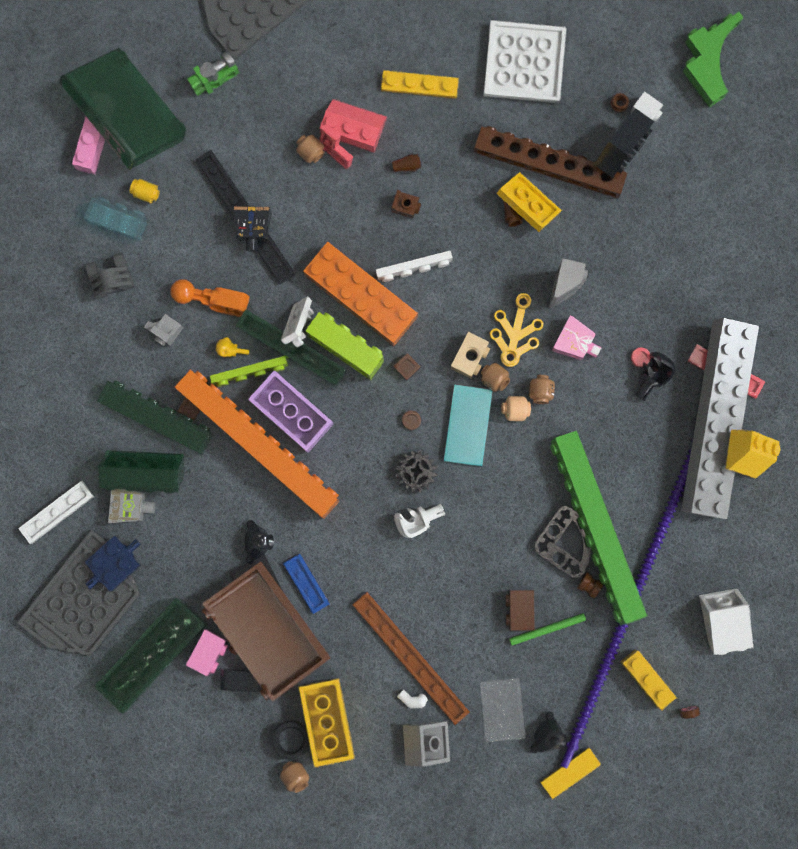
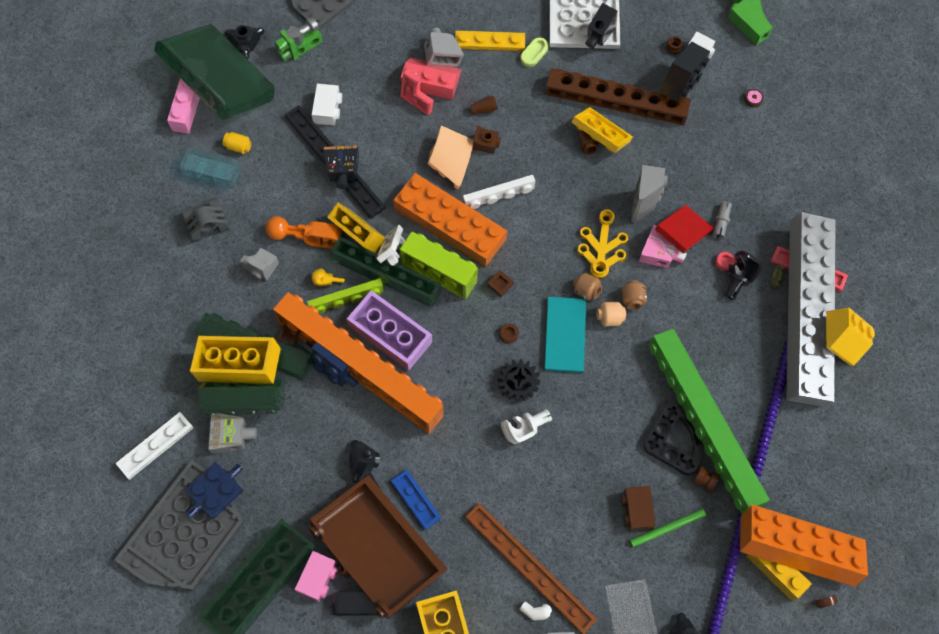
camera: 10 degrees left, 15 degrees down
(136, 437) = (235, 359): none -> yellow brick
(156, 67) = (244, 38): none -> black rock
(224, 441) = (329, 364): none -> dark blue plate
(239, 152) = (326, 103): none -> white brick
(263, 298) = (356, 227): none -> yellow brick
(310, 148) = (392, 97): medium nougat head -> none
(366, 95) = (442, 49): none -> light grey torso
(367, 220) = (451, 155): none -> light nougat slope
(466, 101) = (534, 52): none -> yellowish green tile
(470, 344) = (561, 258): tan brick -> none
(543, 75) = (601, 26): none -> black torso
(601, 321) = (684, 229): none -> red tile
(643, 311) = (722, 220): none -> light grey pin
(673, 661) = (803, 545): none -> orange brick
(691, 378) = (777, 276): none -> olive piece
(697, 172) = (753, 98): none -> tile
(726, 621) = (850, 504): white slope -> none

